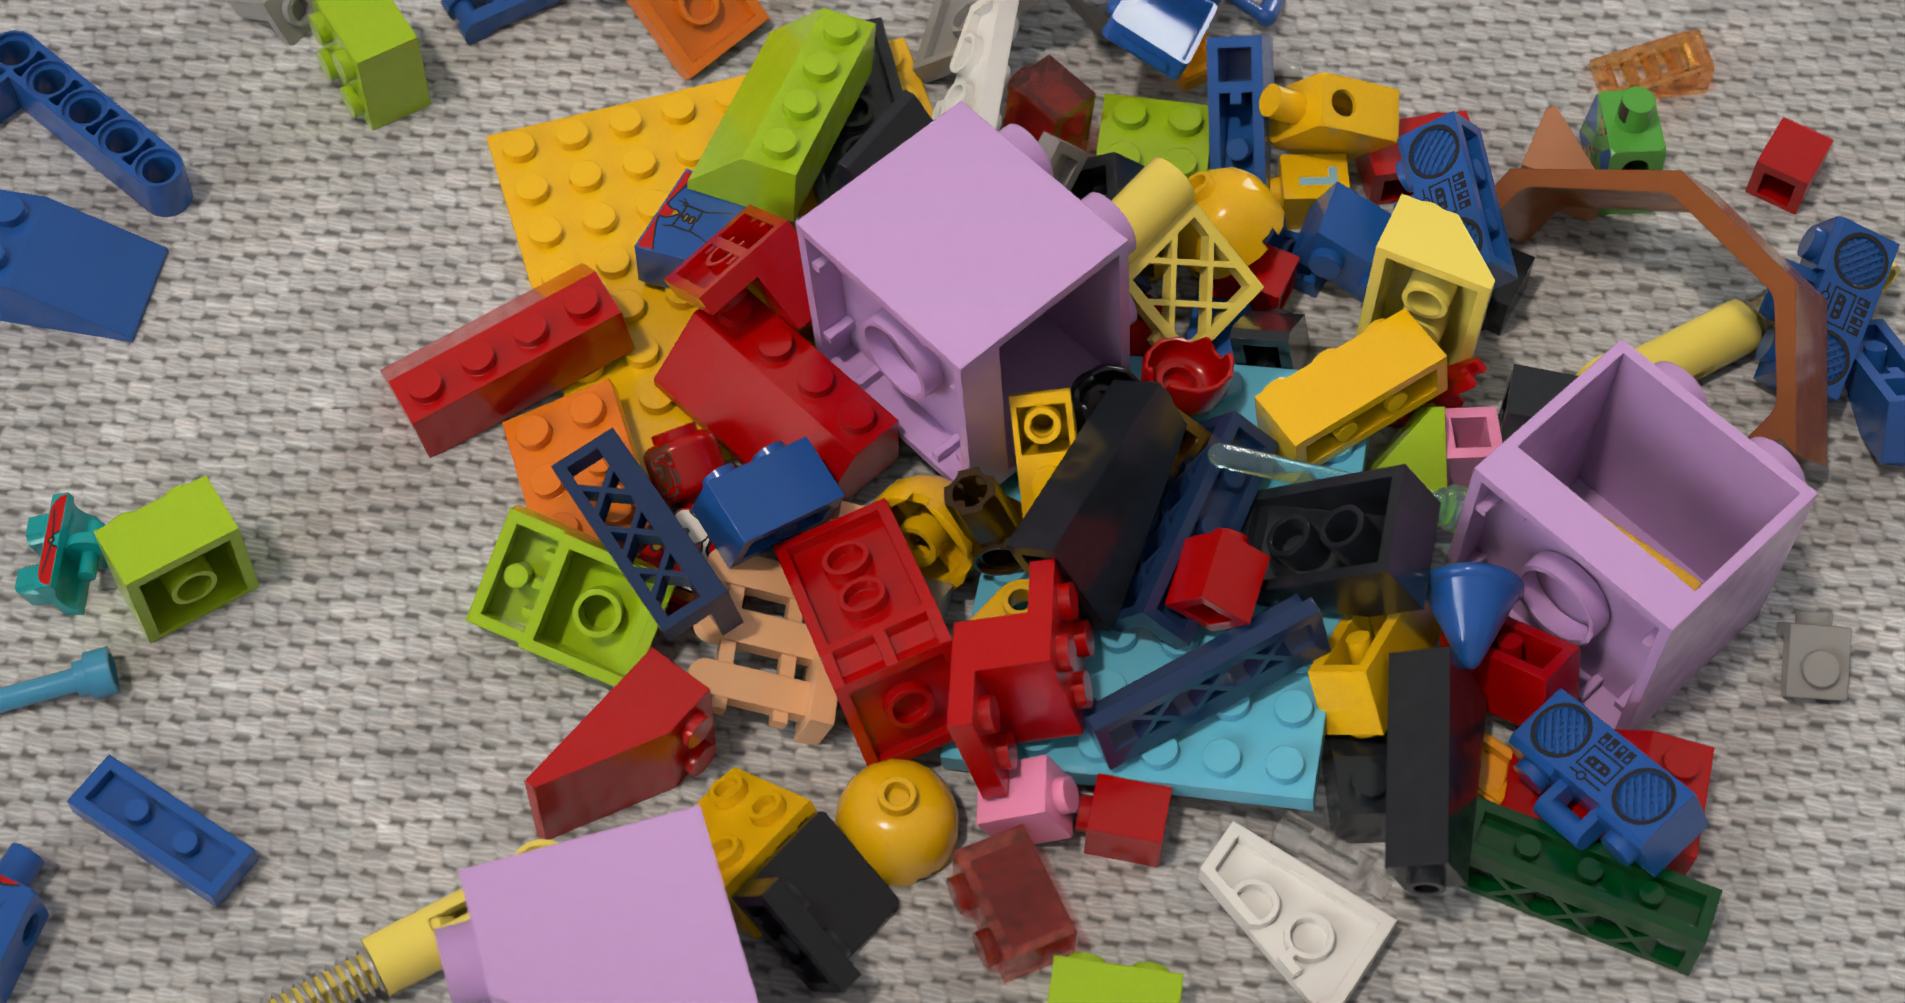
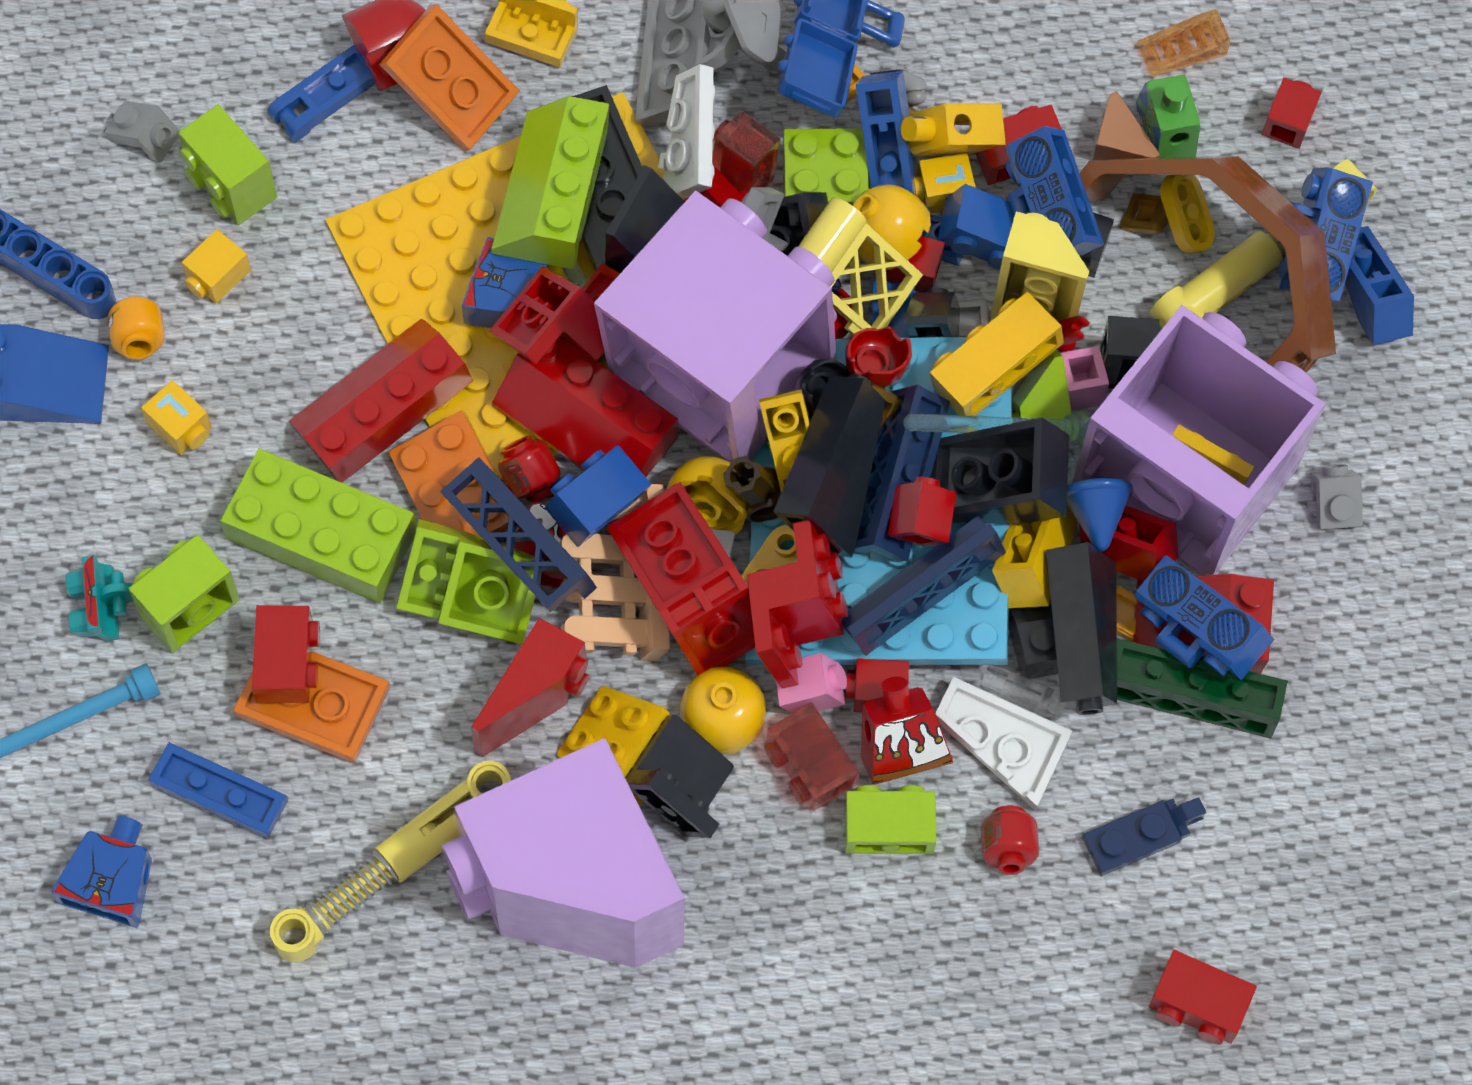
camera: 10 degrees left, 10 degrees up
(205, 227) = (136, 327): none -> light orange head
(230, 343) = (177, 418): none -> yellow brick
(292, 655) = (283, 654): none -> red brick
(323, 726) = (337, 710): none -> orange plate
(327, 169) = (215, 267): none -> yellow brick
(383, 500) = (319, 525): none -> lime brick
(1146, 885) = (901, 733): none -> red torso
(1588, 267) = (1150, 216): none -> pearl gold slope
(1636, 265) = (1187, 213): none -> yellow plate

